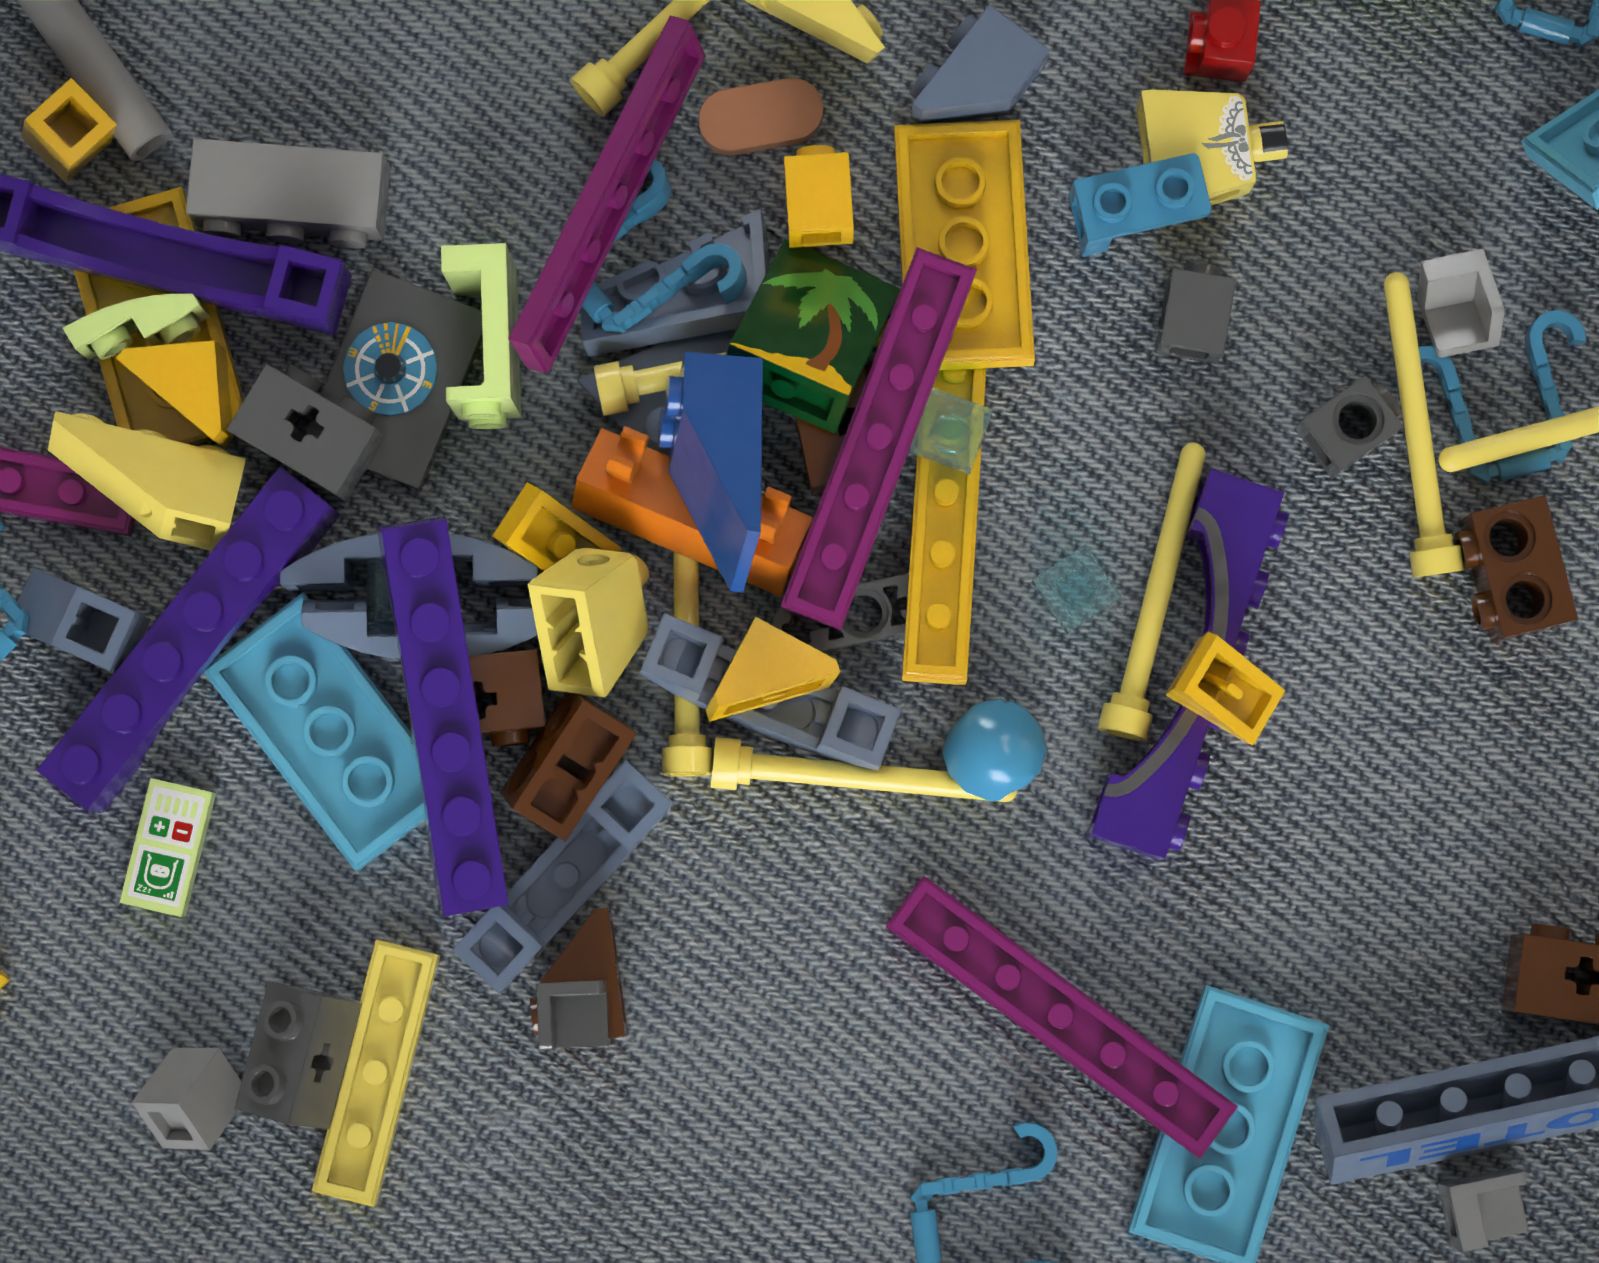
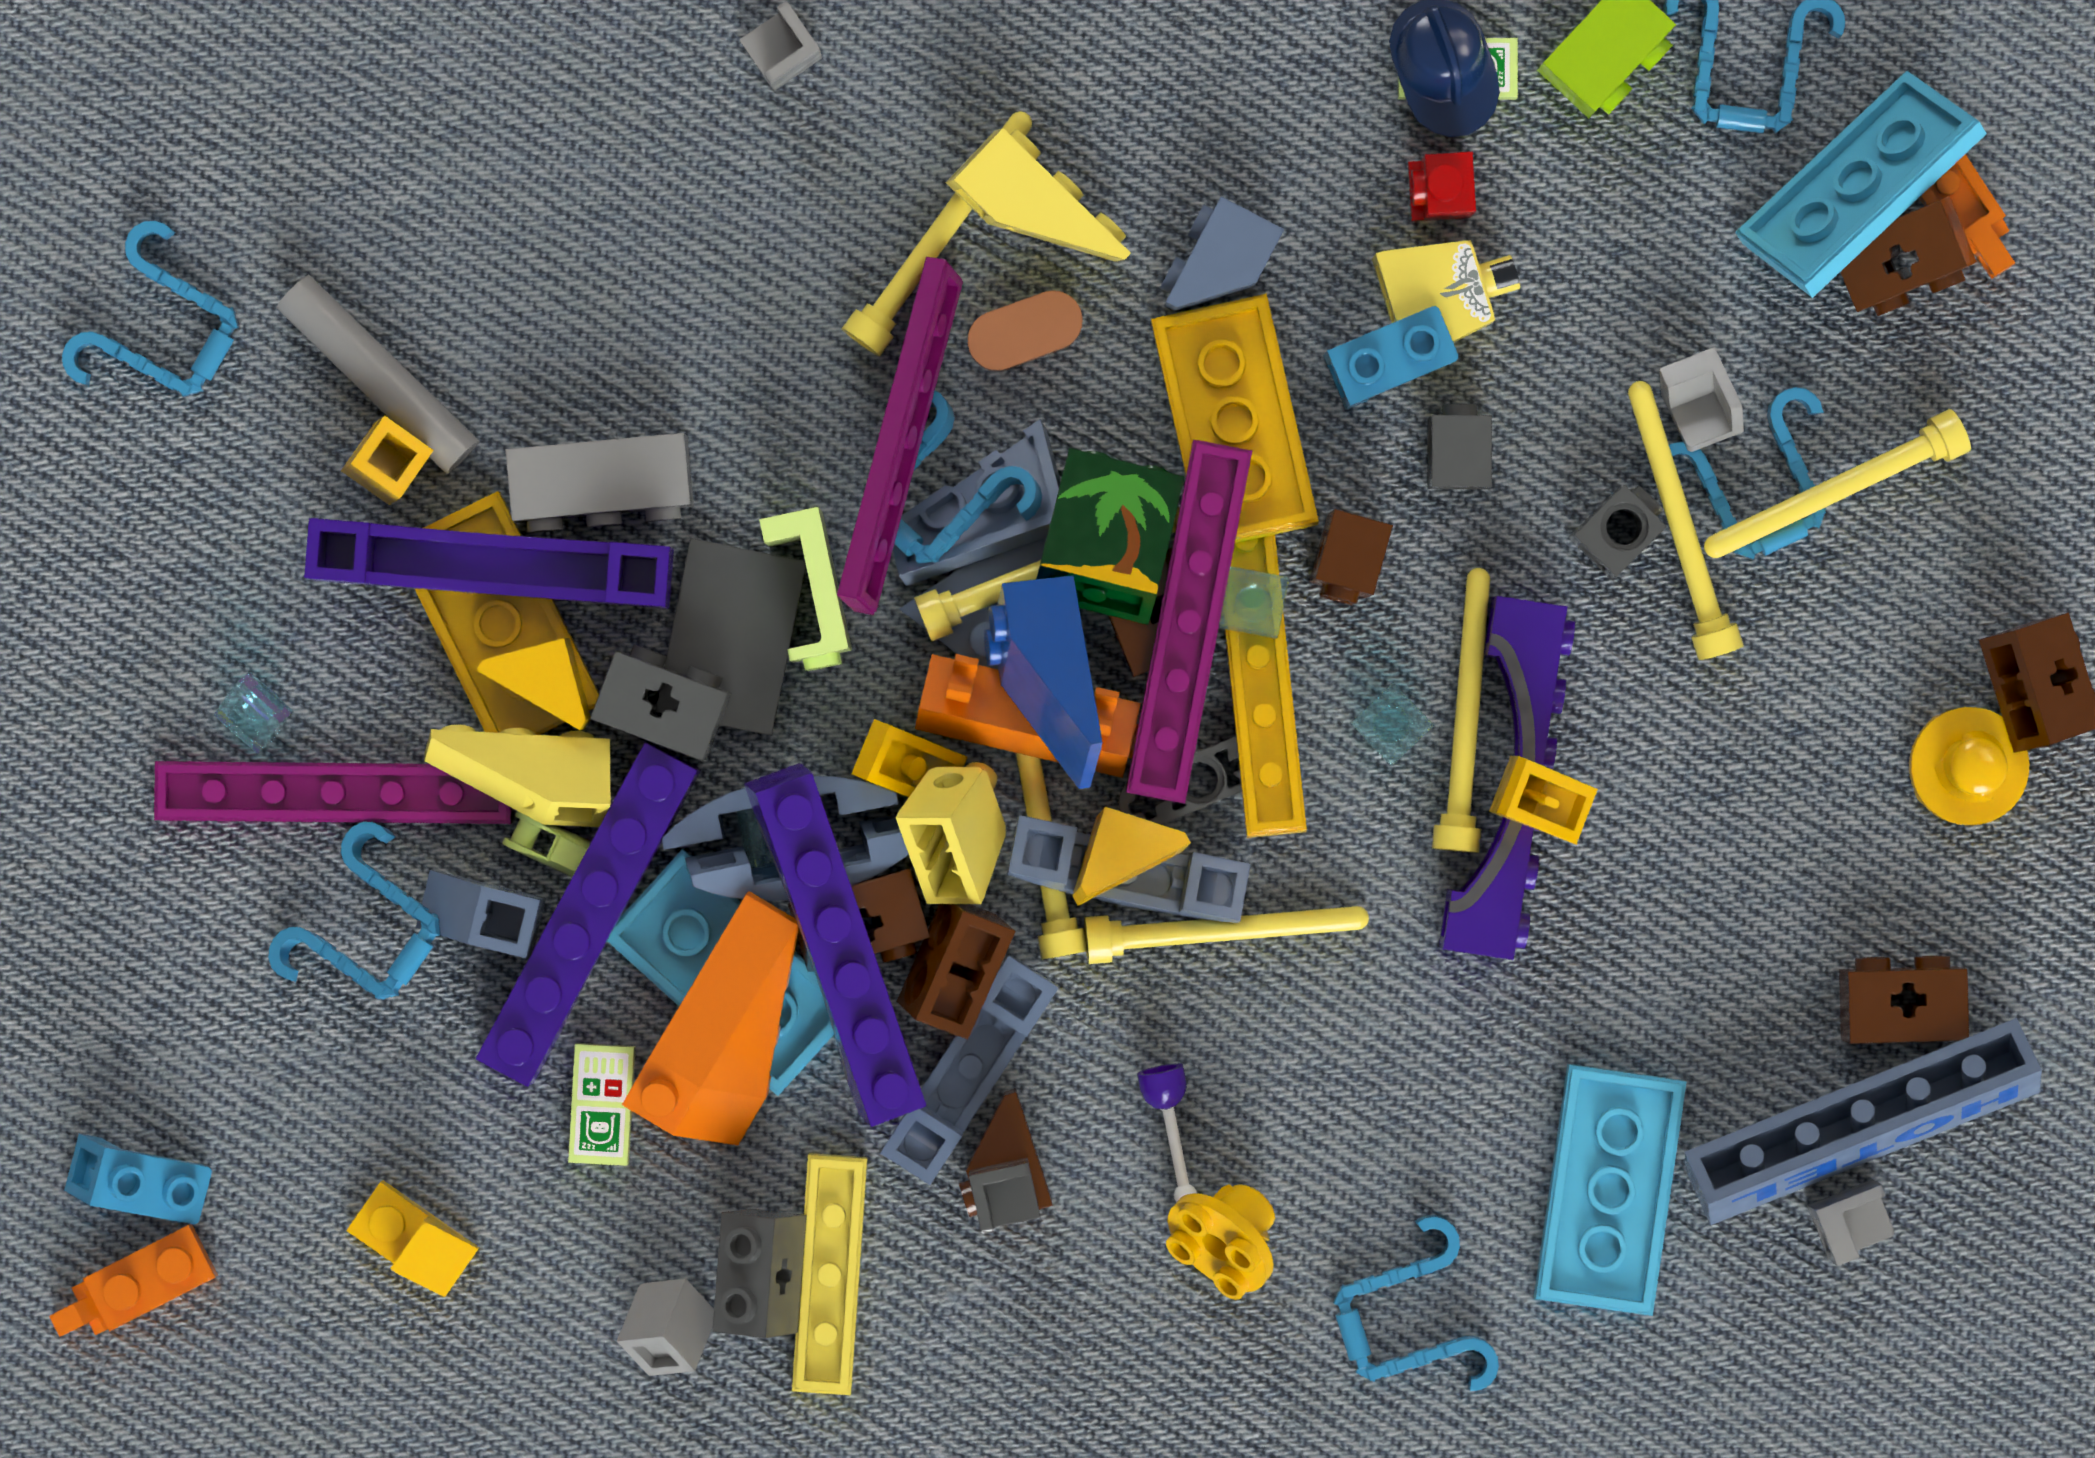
camera: 15 degrees left, 5 degrees up
(158, 318) = (503, 624): yellowish green slope -> none
(173, 573) = (564, 853): none -> yellowish green bar
(295, 808) = (721, 1043): none -> orange wedge
(390, 368) = (724, 629): dark azure piece -> none
(767, 936) = (1163, 1089): none -> dark purple hinge
(804, 1105) = (1224, 1237): none -> yellow plate
(818, 197) = (1095, 409): yellow slope -> none
(995, 749) = (1342, 884): dark azure hair -> none
(1061, 399) = (1350, 557): none -> reddish brown brick
(1062, 1017) = (1442, 1116): magenta tile -> none
(1534, 567) = (1805, 630): reddish brown brick -> none

